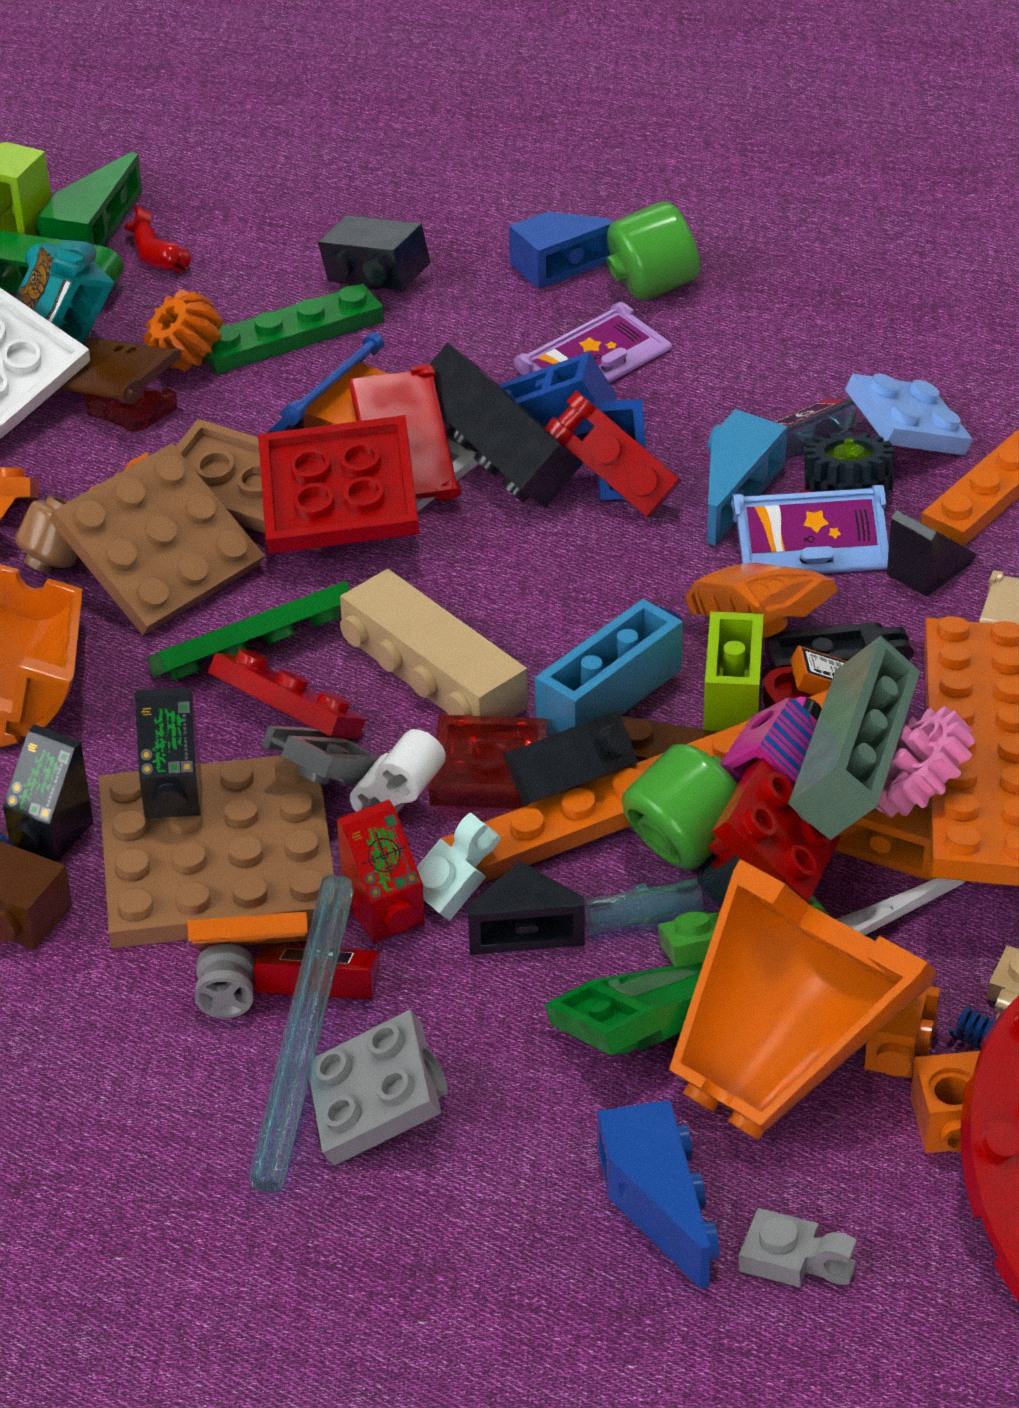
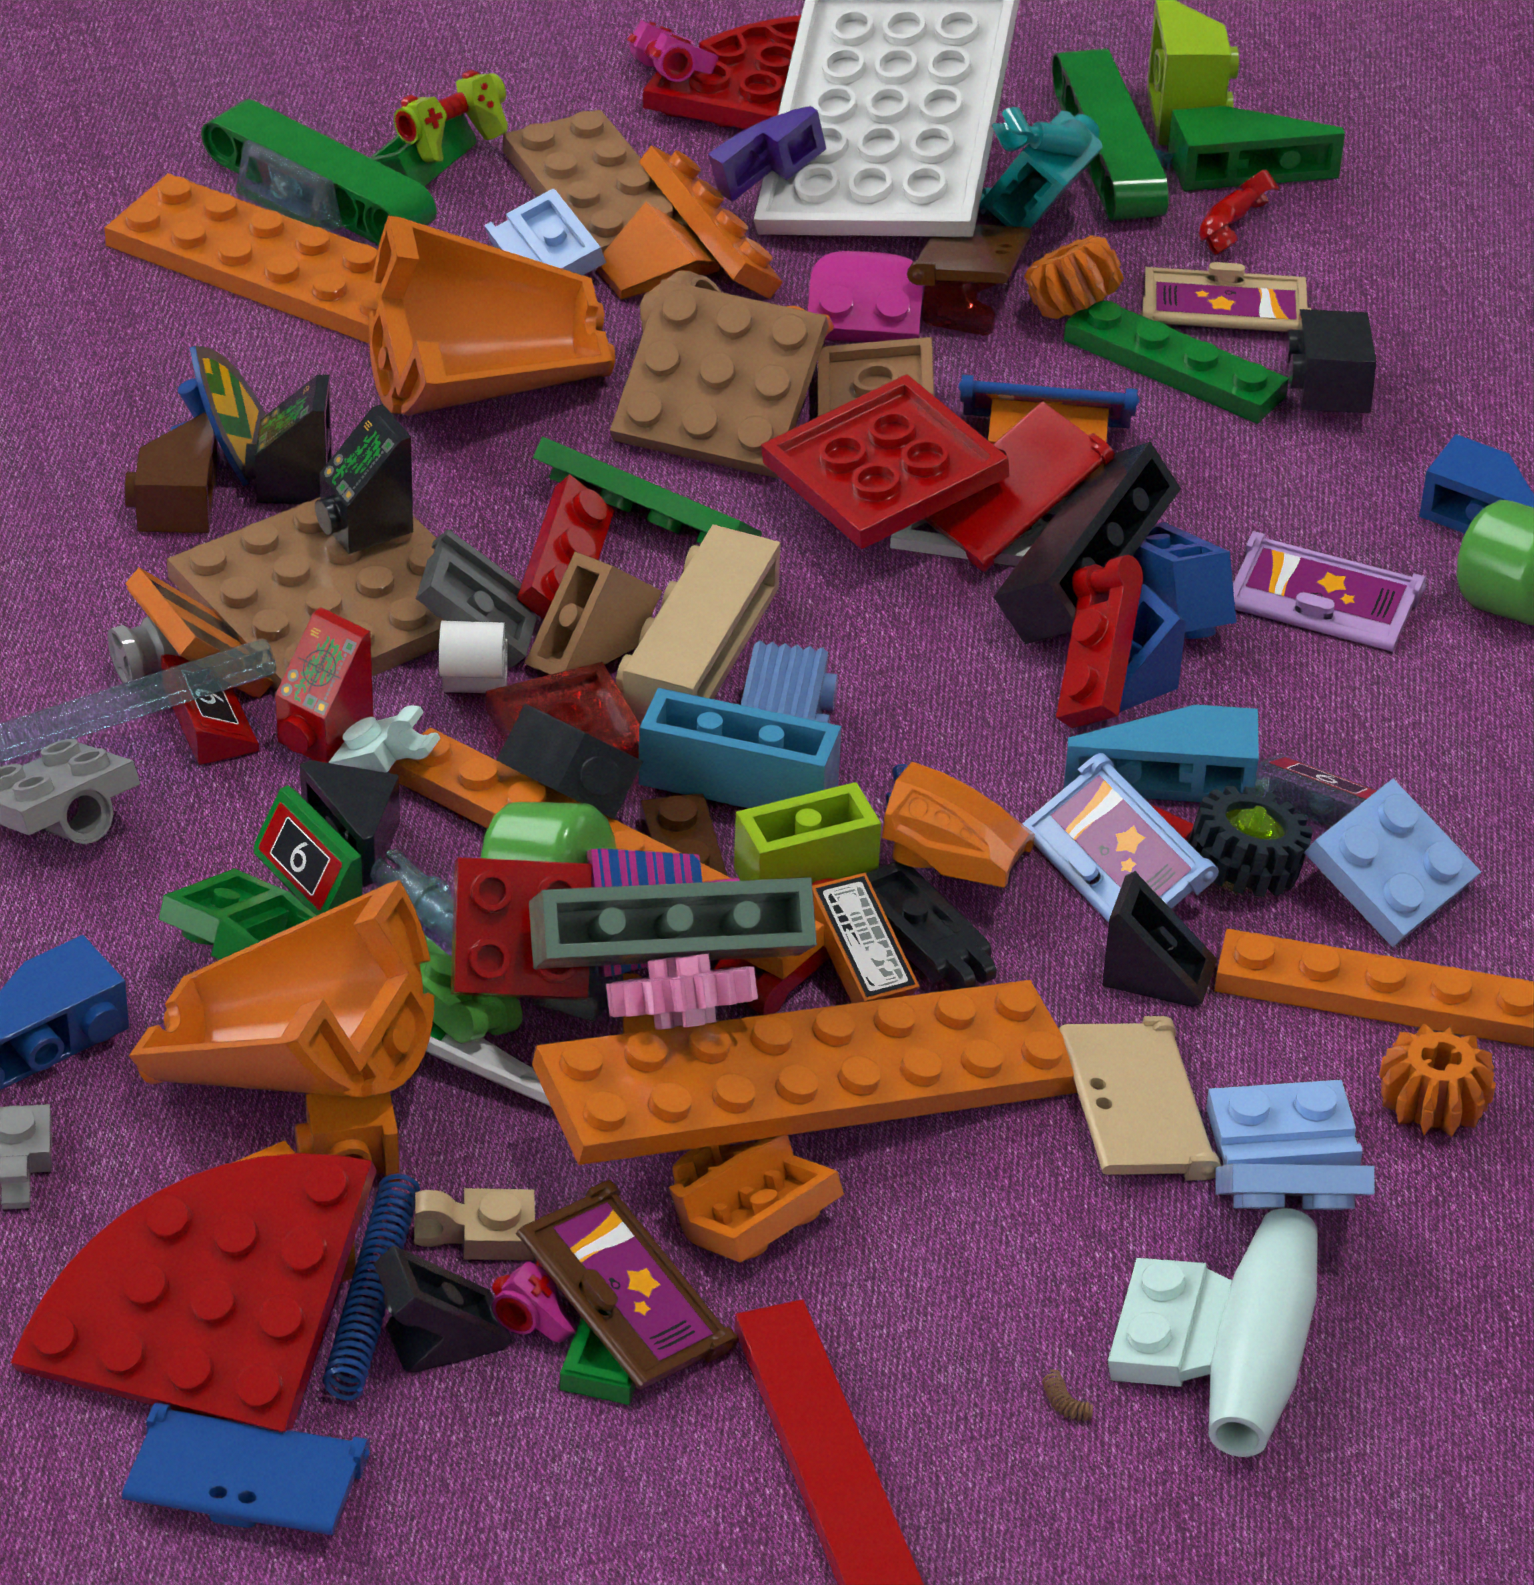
camera: 60 degrees right, 0 degrees up
(99, 439) = (866, 296): none -> dark pink slope
(250, 278) = (1223, 298): none -> door
(387, 697) = (592, 617): none -> medium nougat slope
(541, 629) = (790, 681): none -> medium blue brick
(549, 955) = (308, 854): none -> slope

